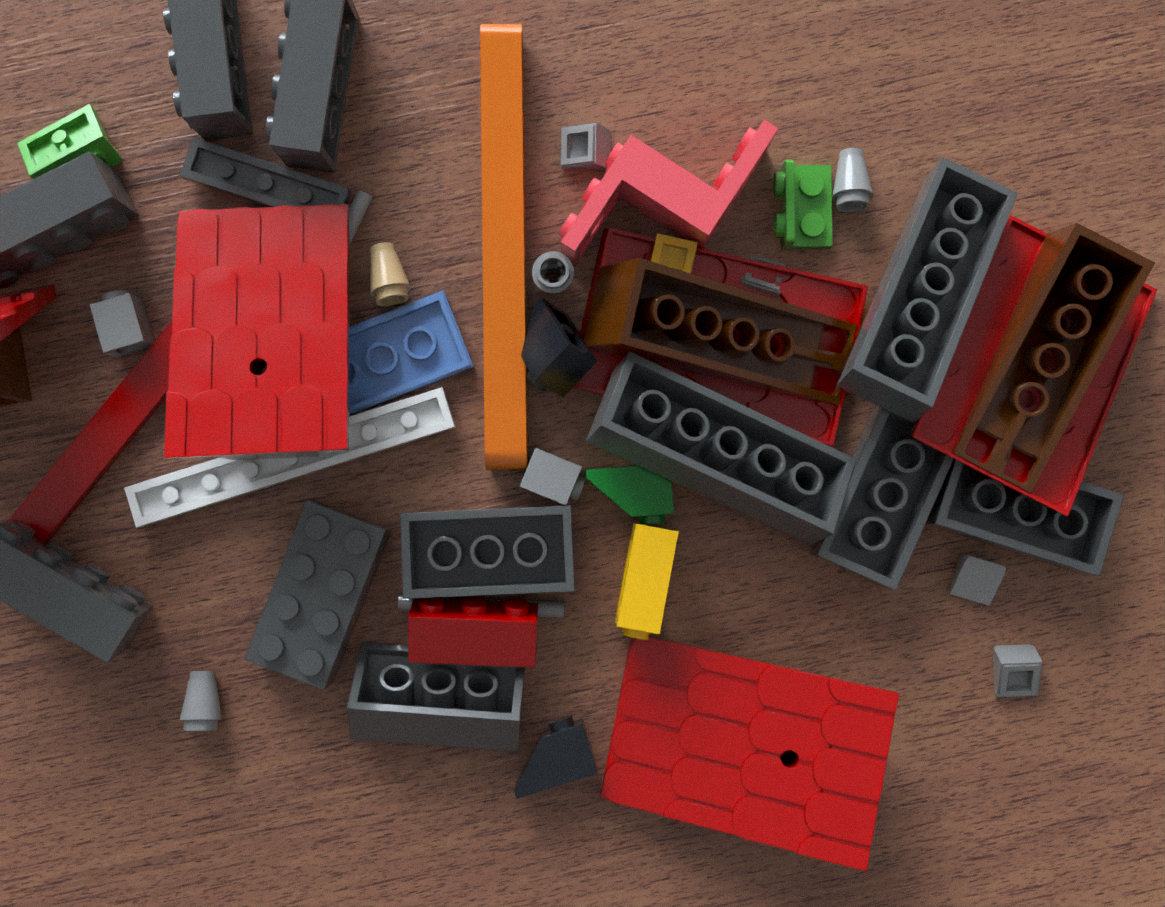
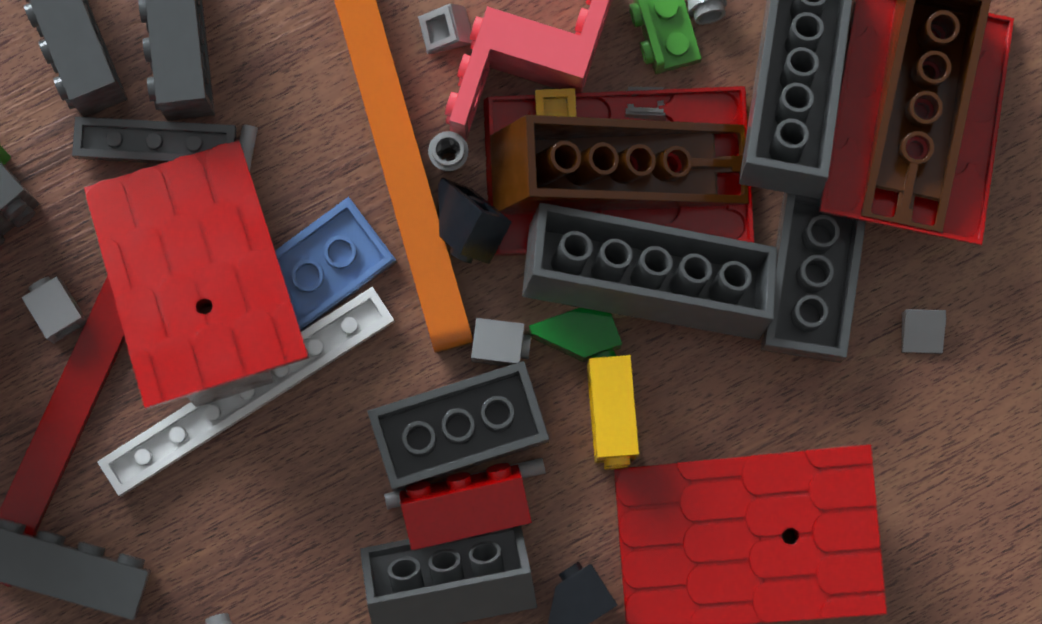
camera: 15 degrees left, 5 degrees down
(318, 594) = (308, 510): dark grey brick -> none
(387, 276) = (293, 199): tan cone -> none
(1006, 519) = (929, 265): dark grey brick -> none
(1016, 670) = (985, 407): light grey slope -> none

